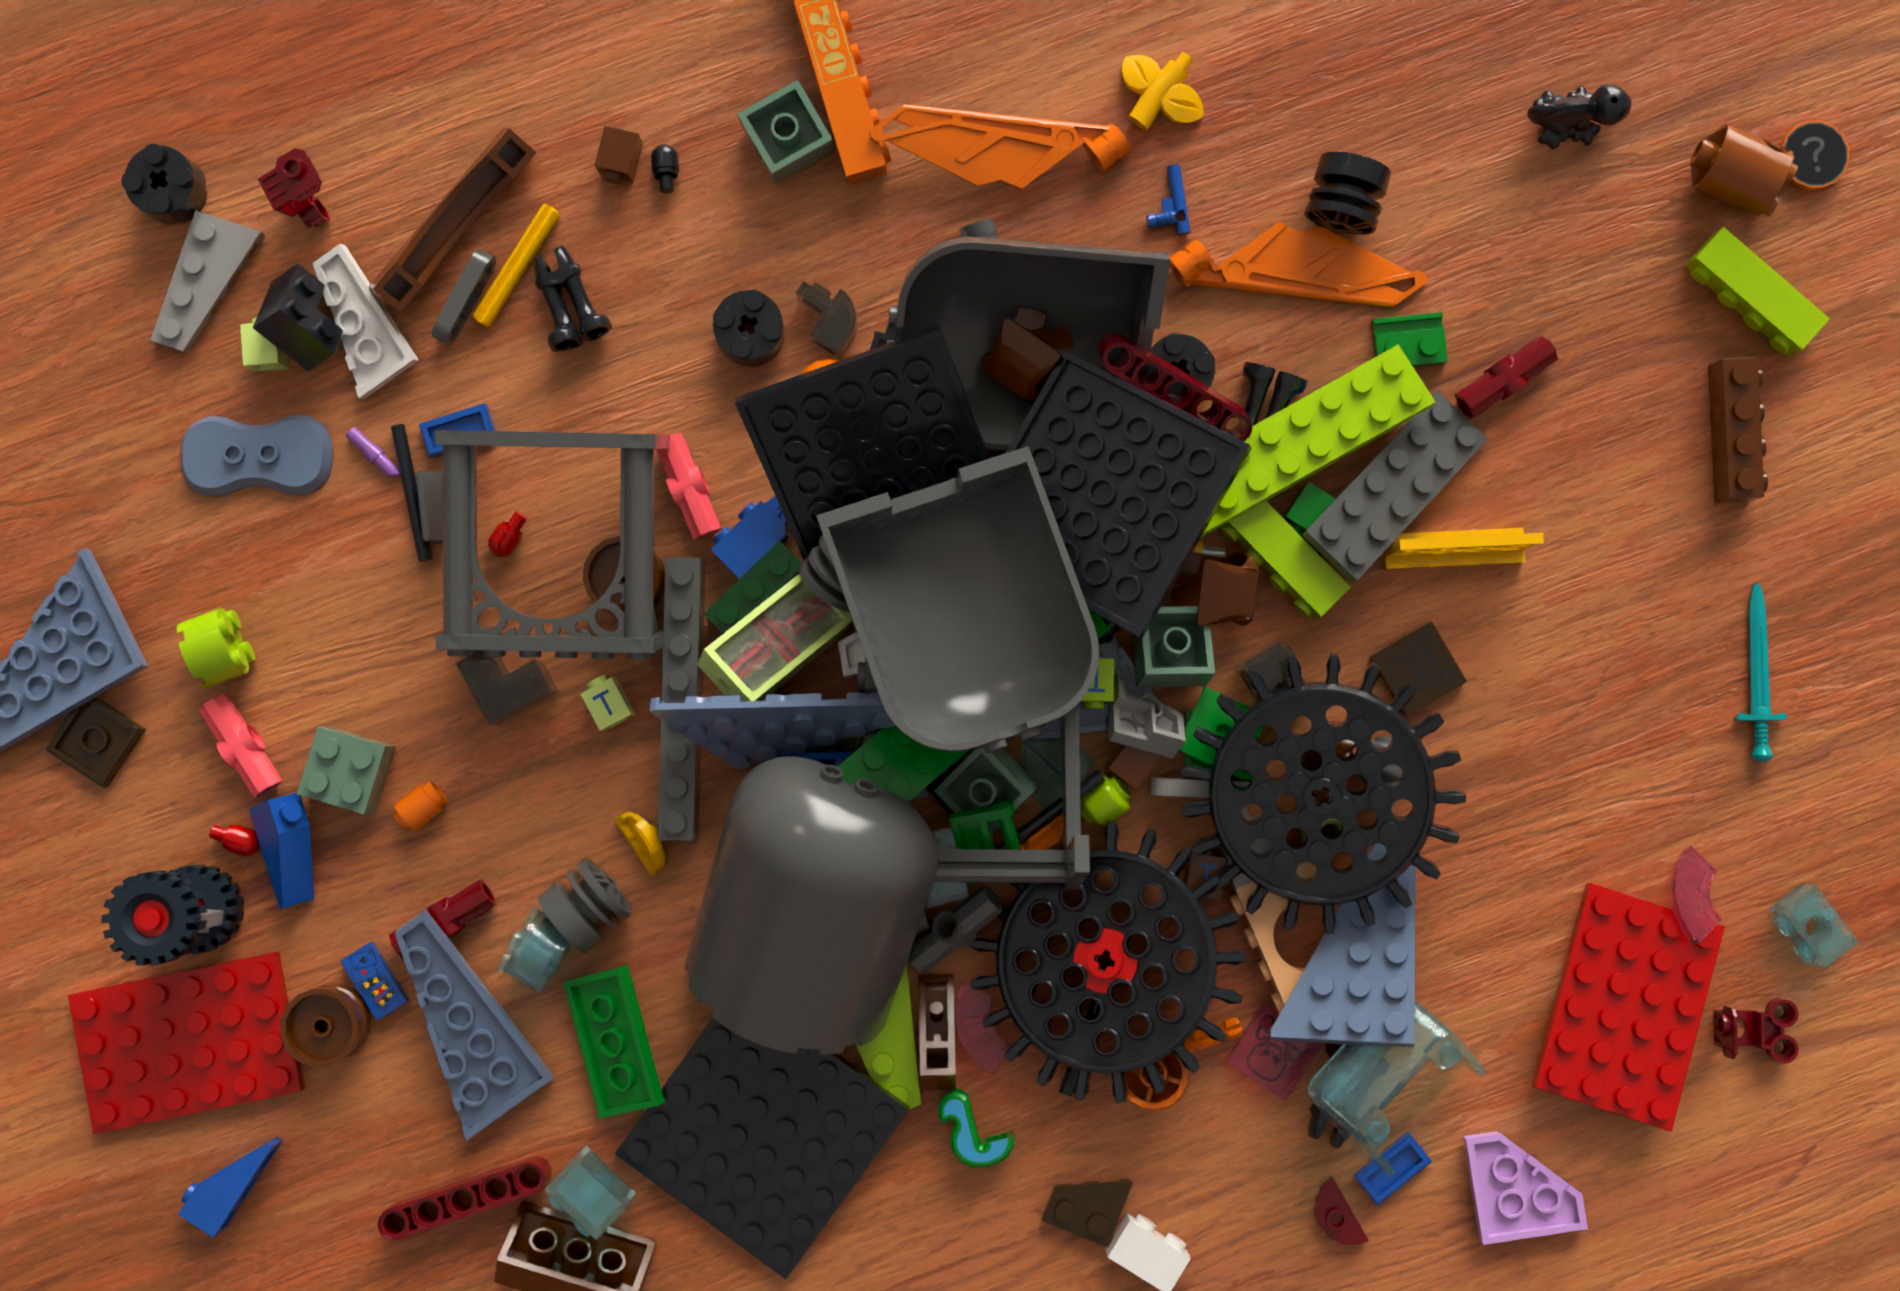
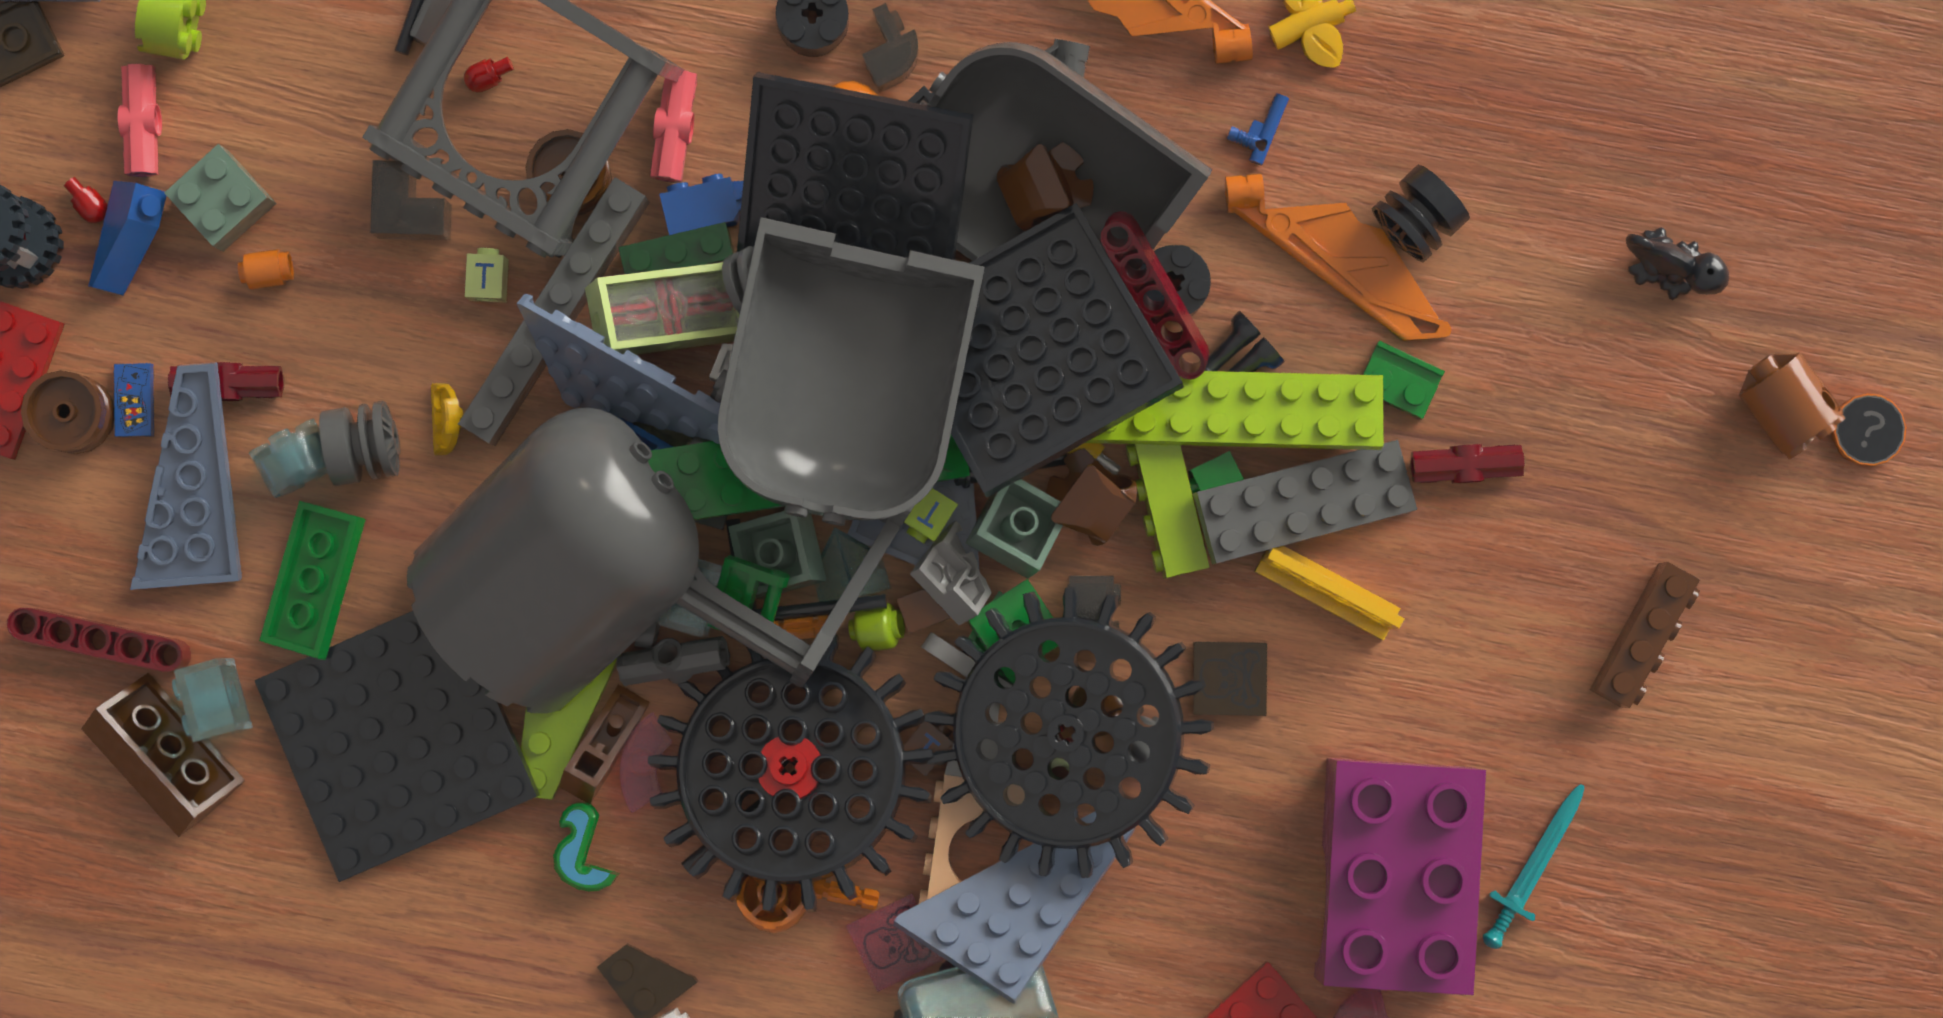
camera: 30 degrees right, 0 degrees up
(1663, 746) = (1401, 876): none -> magenta piece
(1756, 292) = (1737, 521): lime brick -> none

